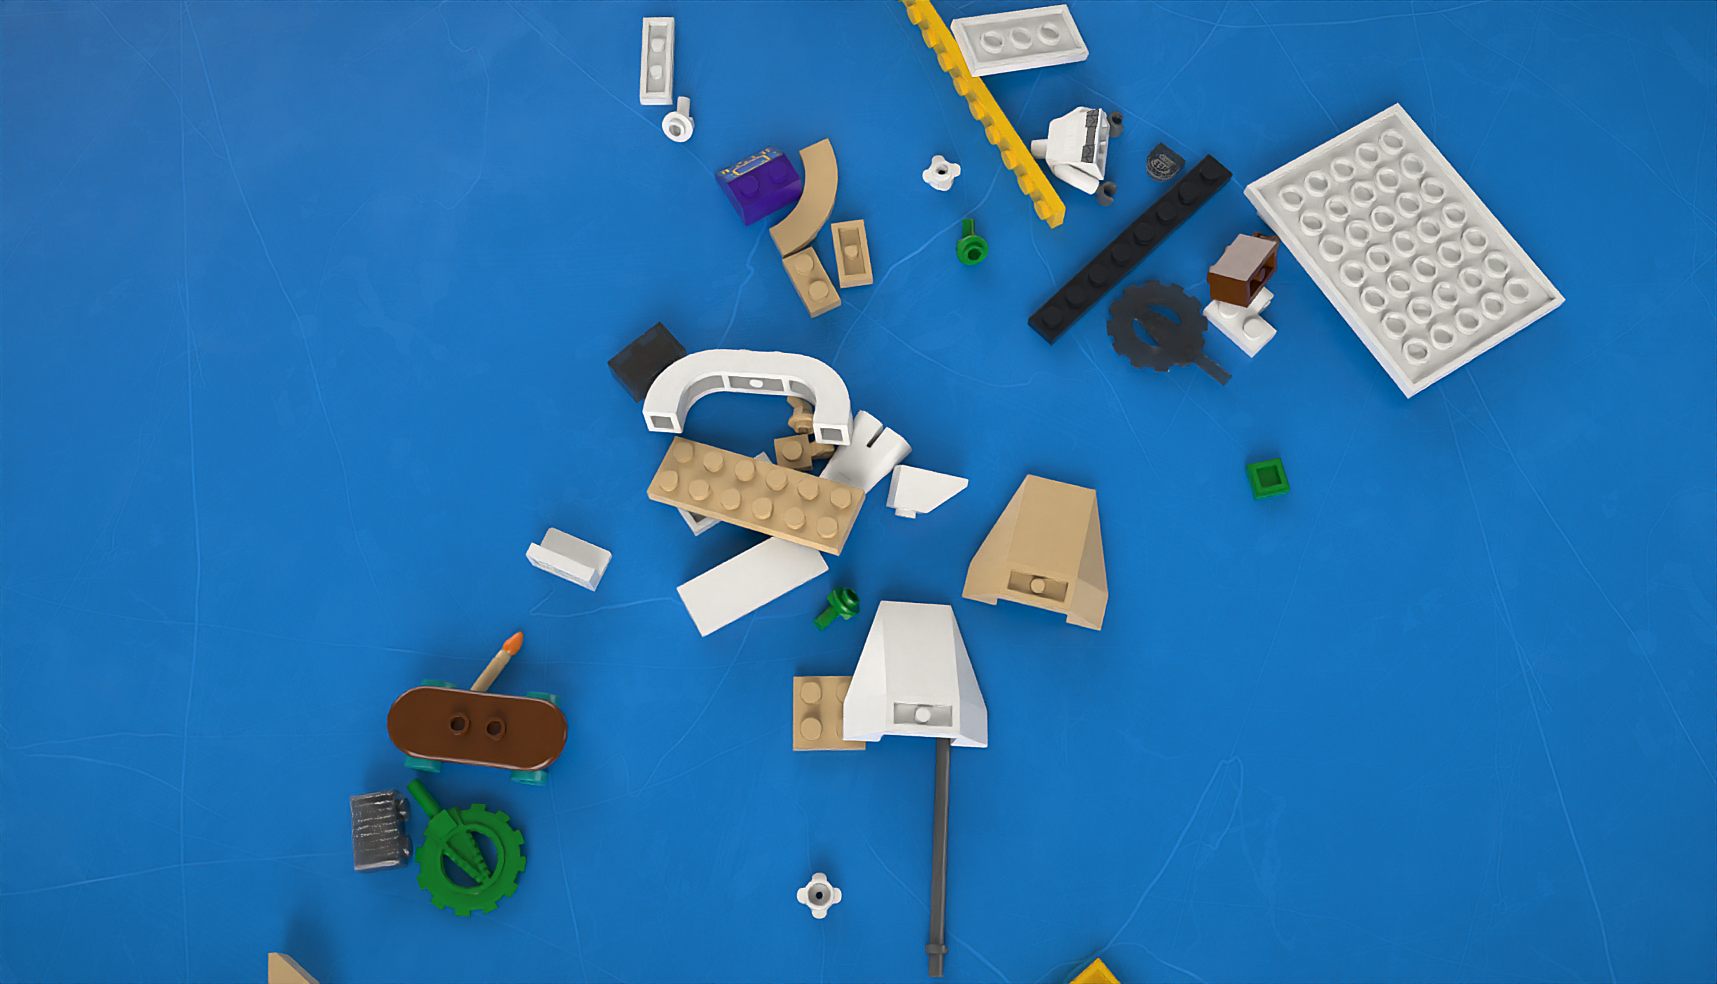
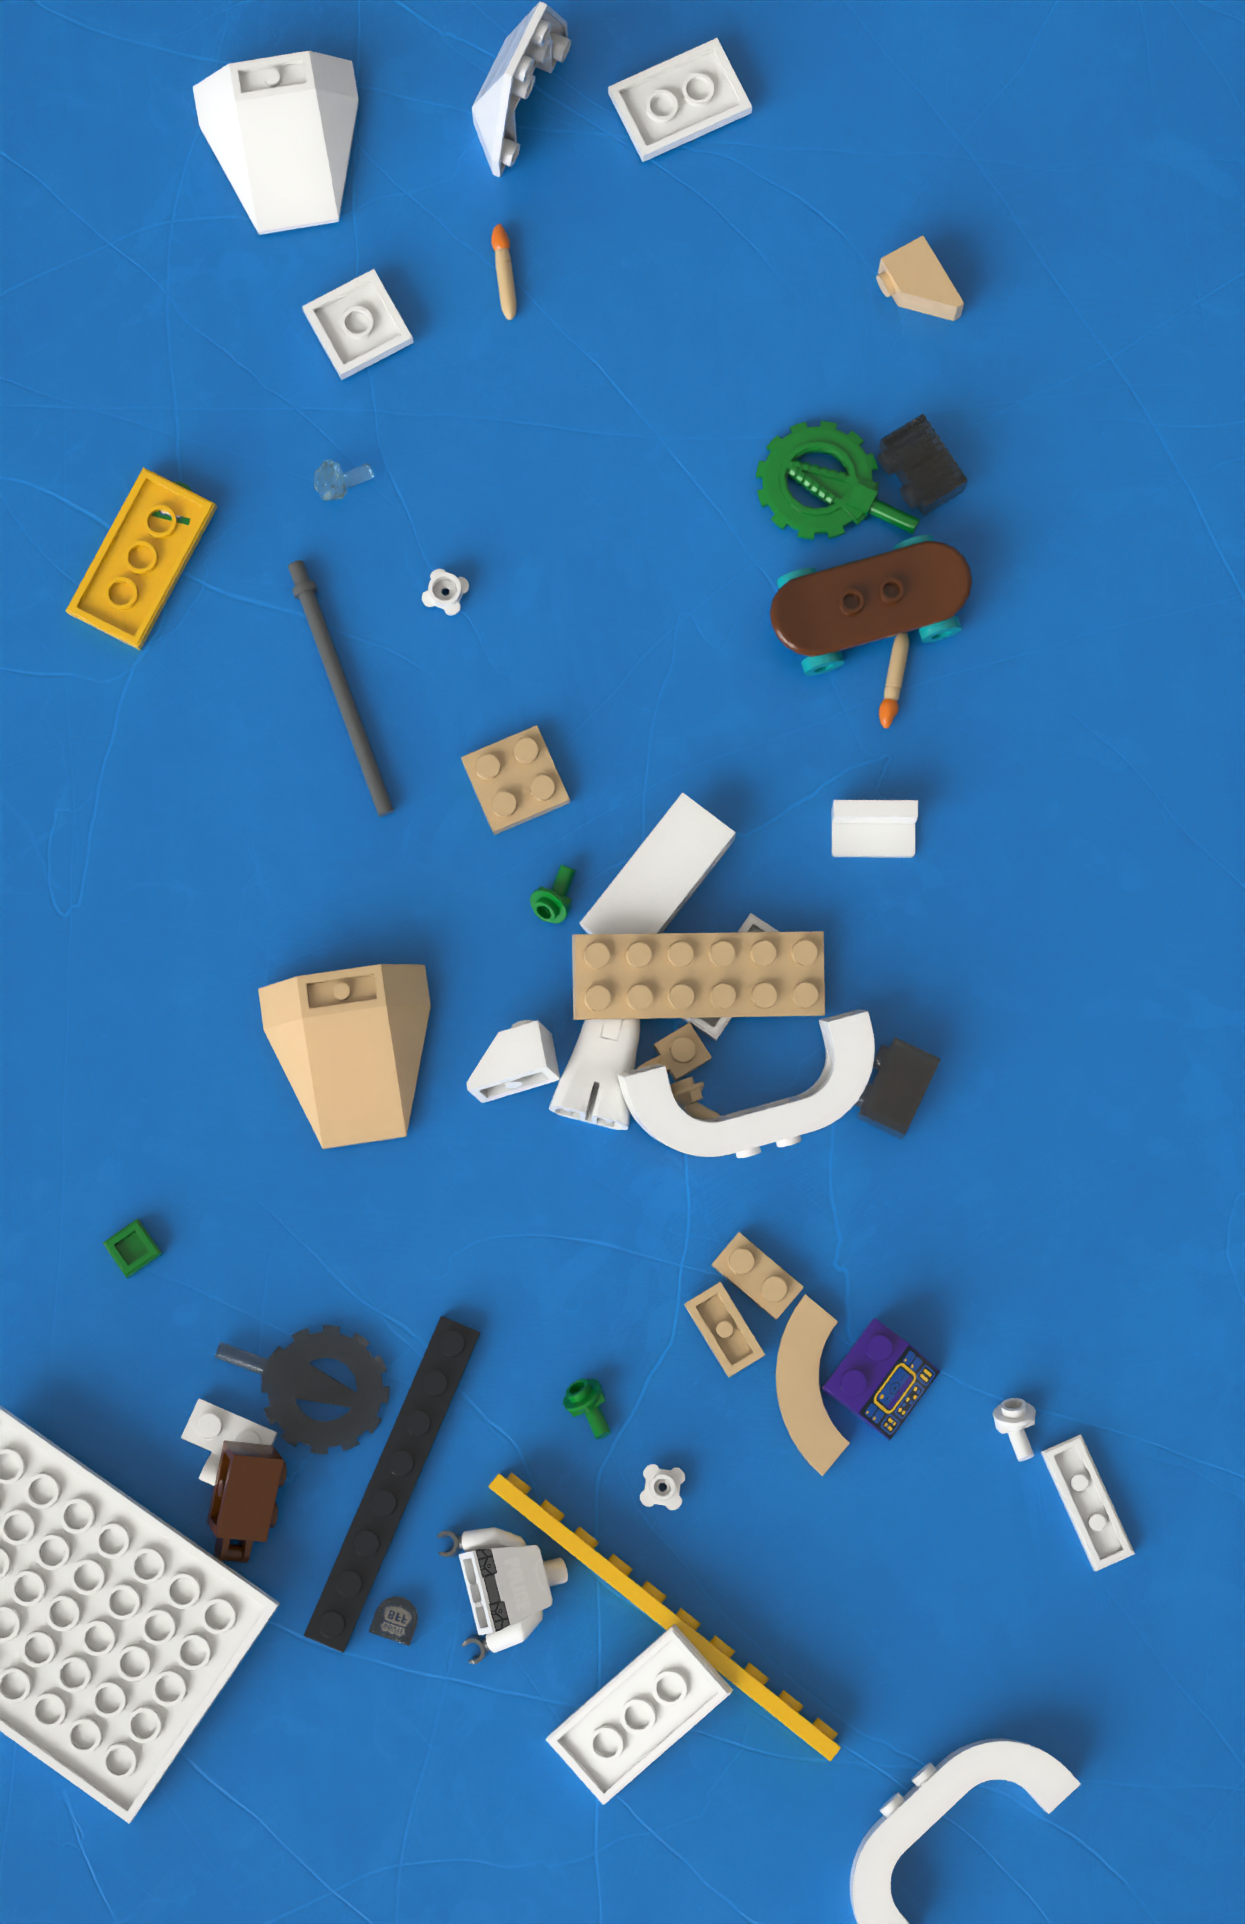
camera: 155 degrees right, 10 degrees up
(915, 679) = (435, 844): white wedge -> none

